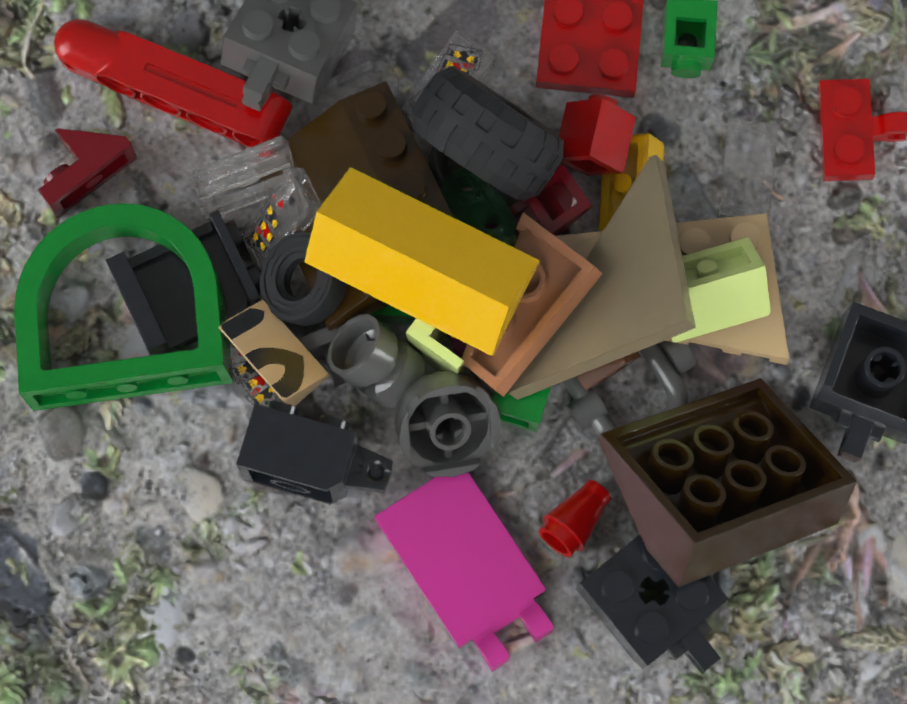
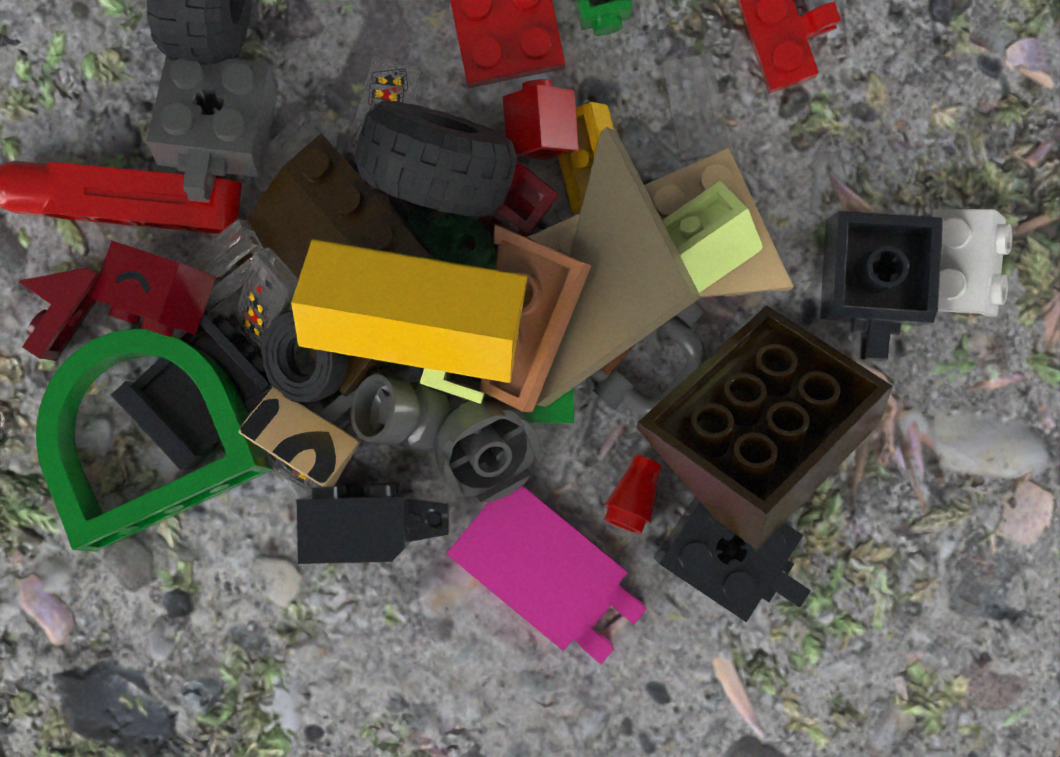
camera: 10 degrees left, 10 degrees up
(179, 175) = (152, 288): none -> dark red brick

